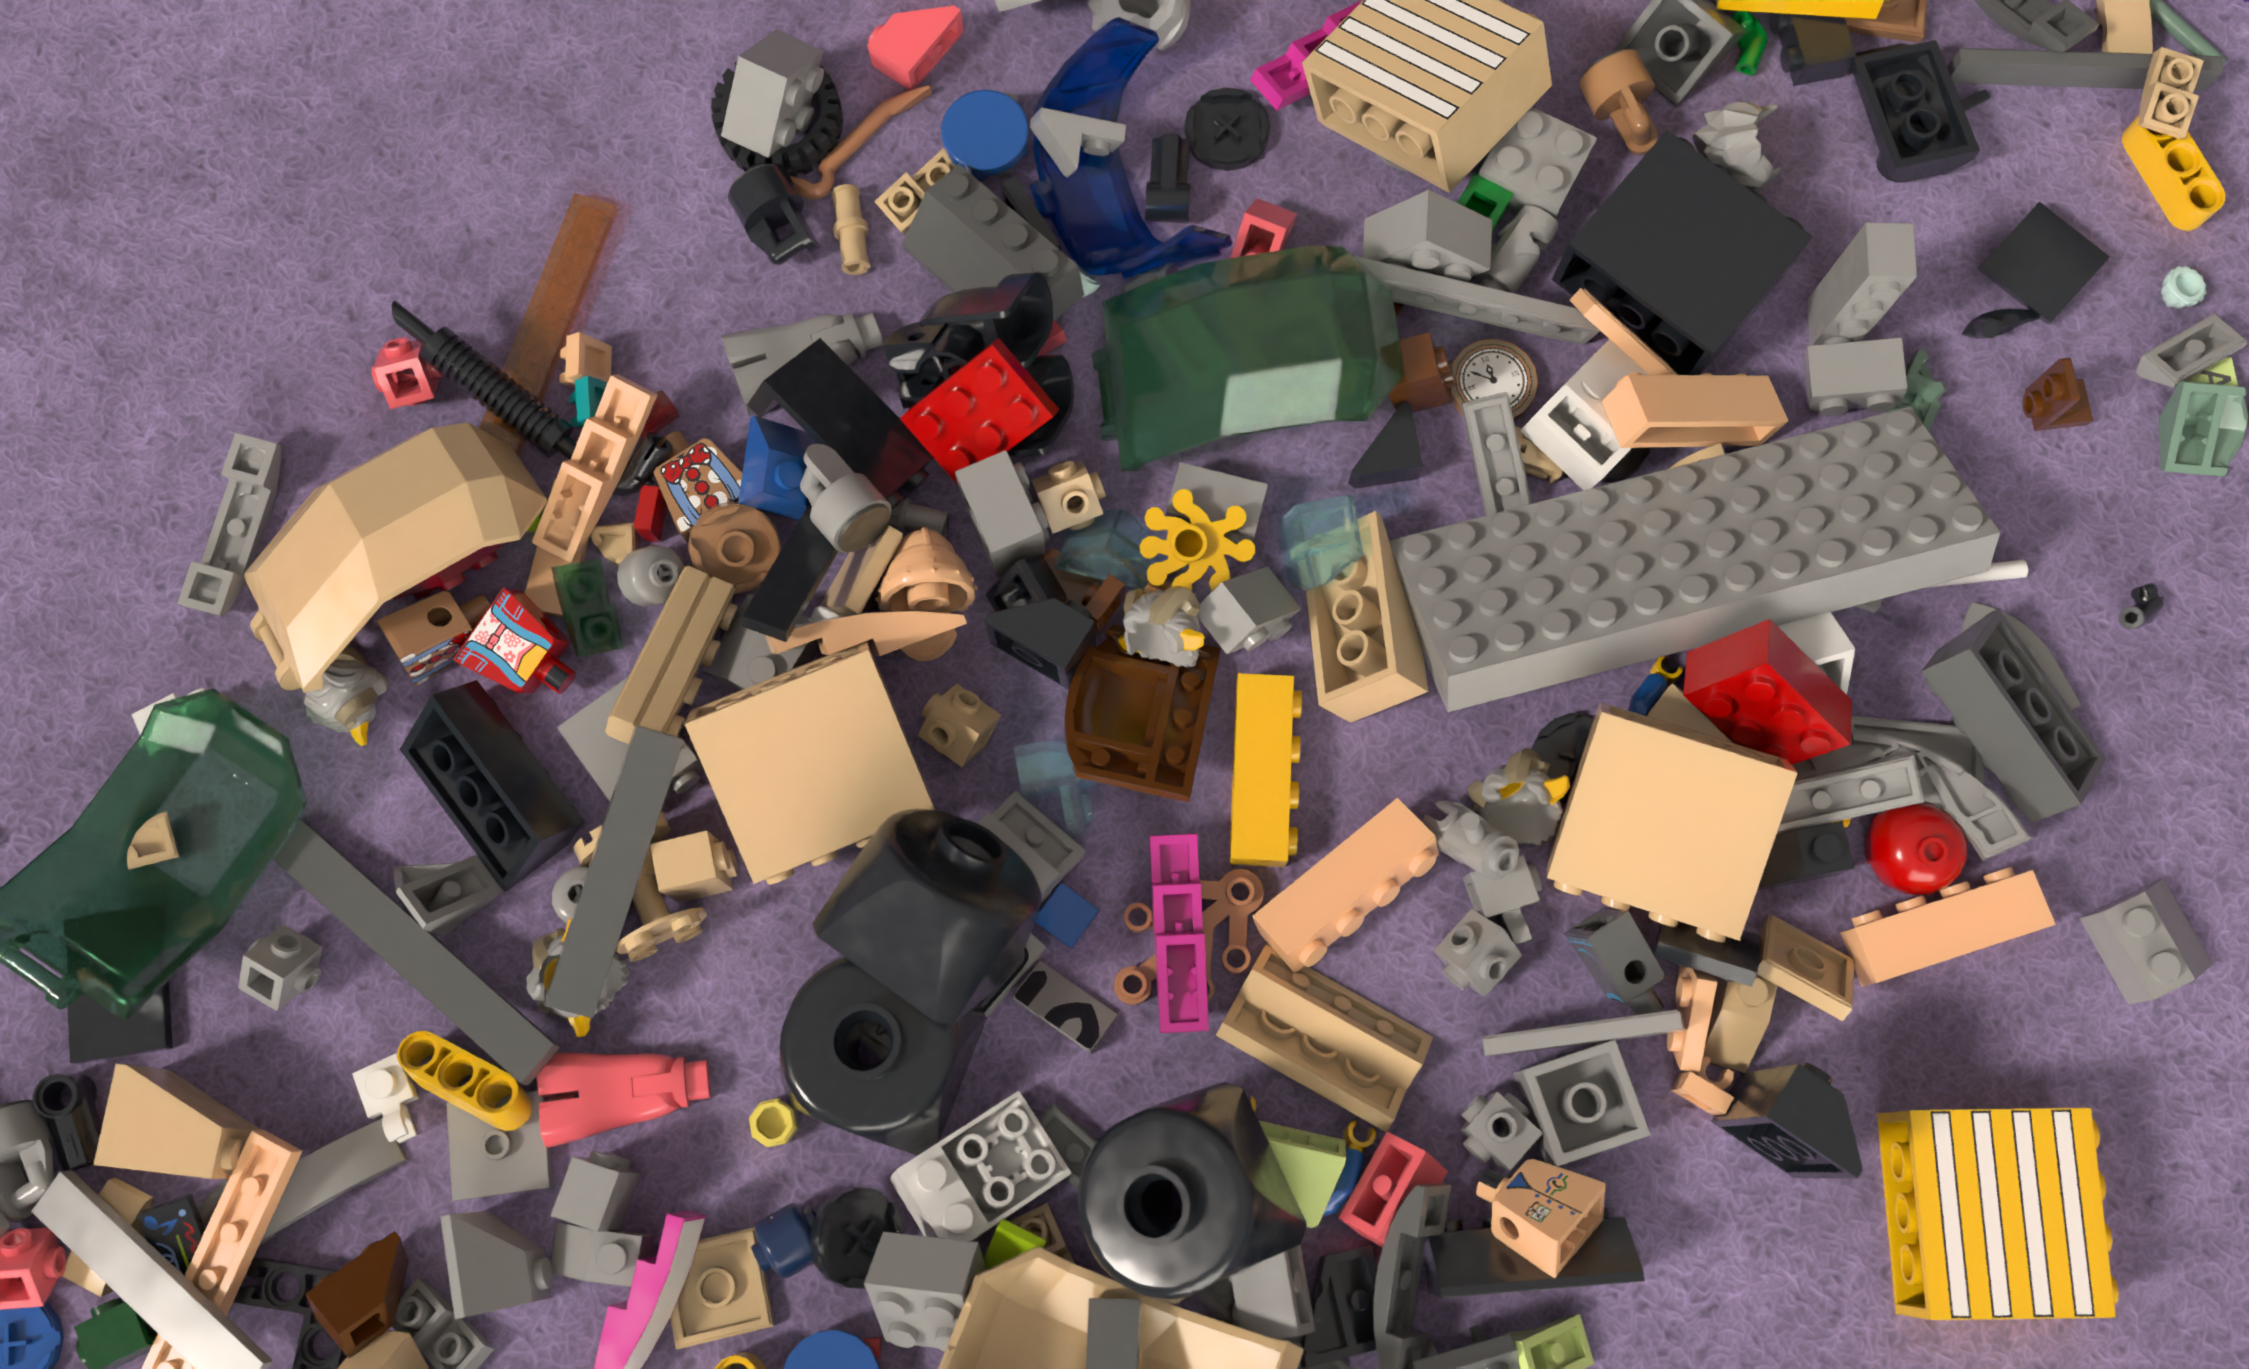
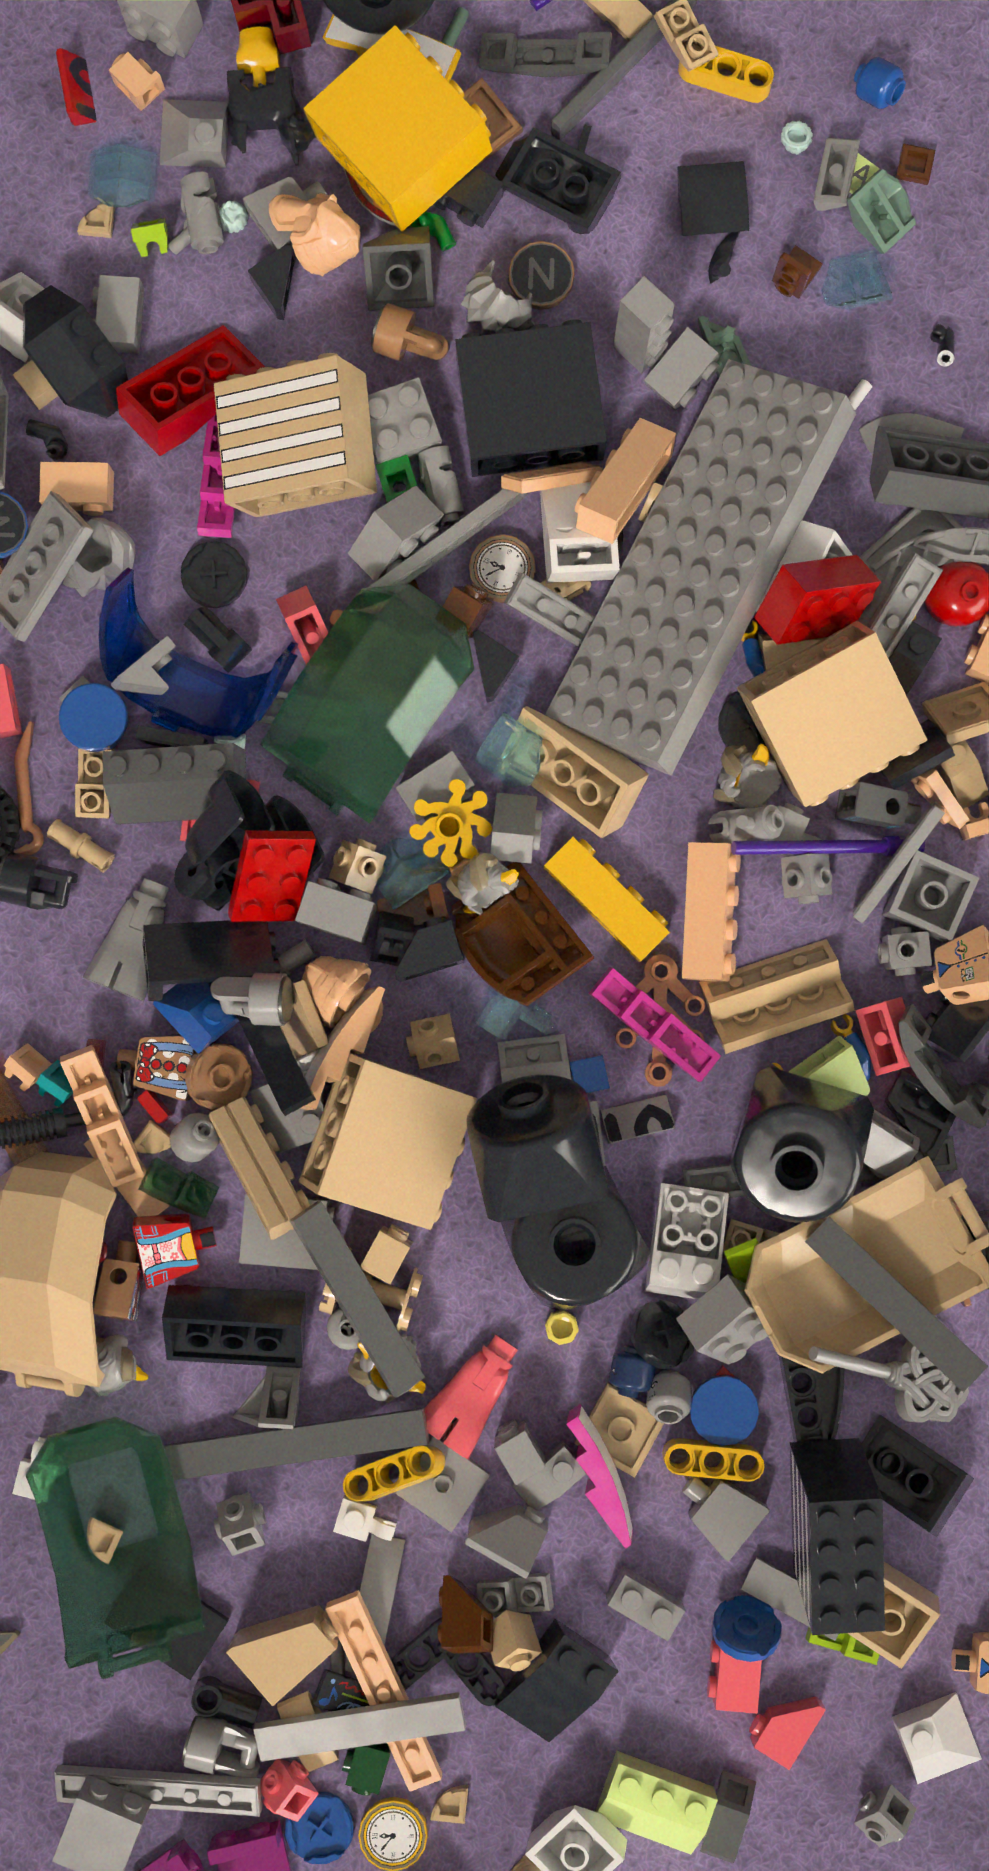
camera: 45 degrees left, 10 degrees up
(794, 1306) = (669, 1397): none -> light grey head
(1586, 1008) = (886, 846): none -> dark purple bar
(1811, 176) = (542, 271): none -> black tile
(2110, 465) = (855, 282): none -> clear light blue slope

